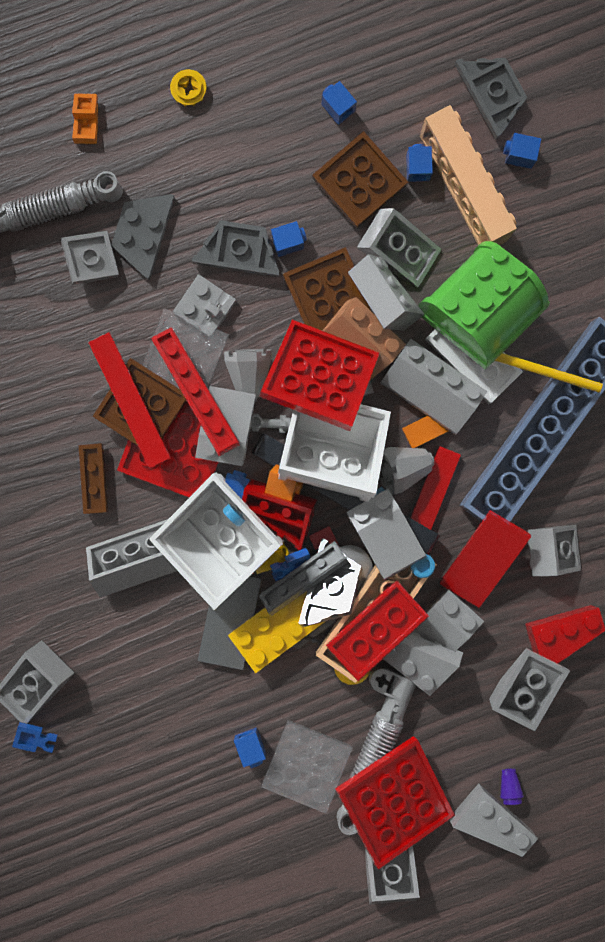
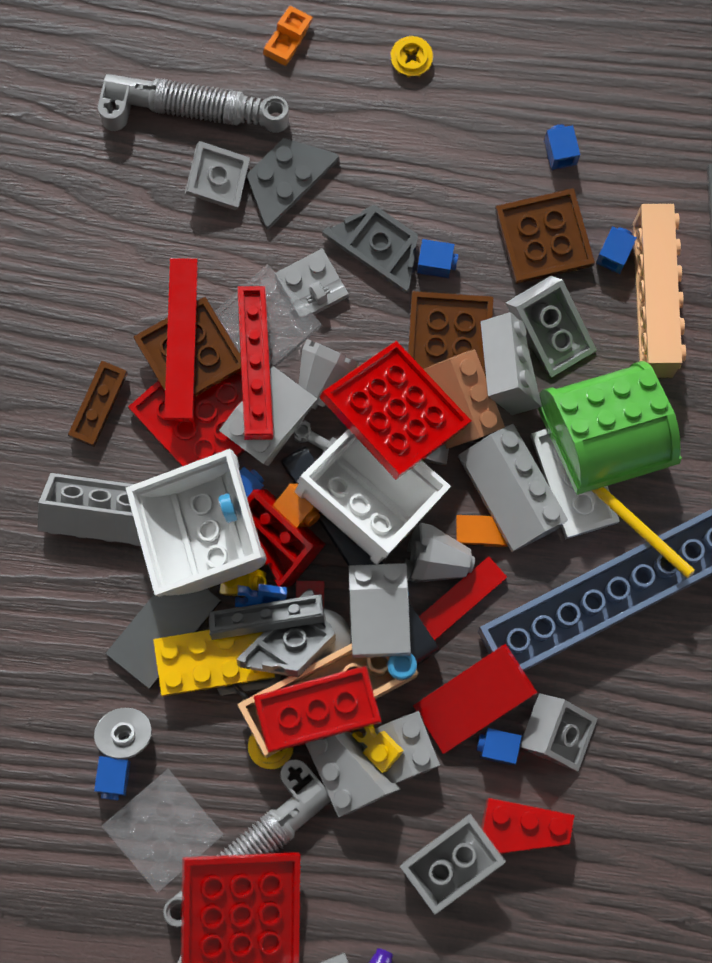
camera: 25 degrees right, 10 degrees down
(231, 712) = (122, 723): none -> light grey dish
(435, 631) = (380, 748): none -> yellow plate
(518, 583) = (499, 746): none -> blue brick

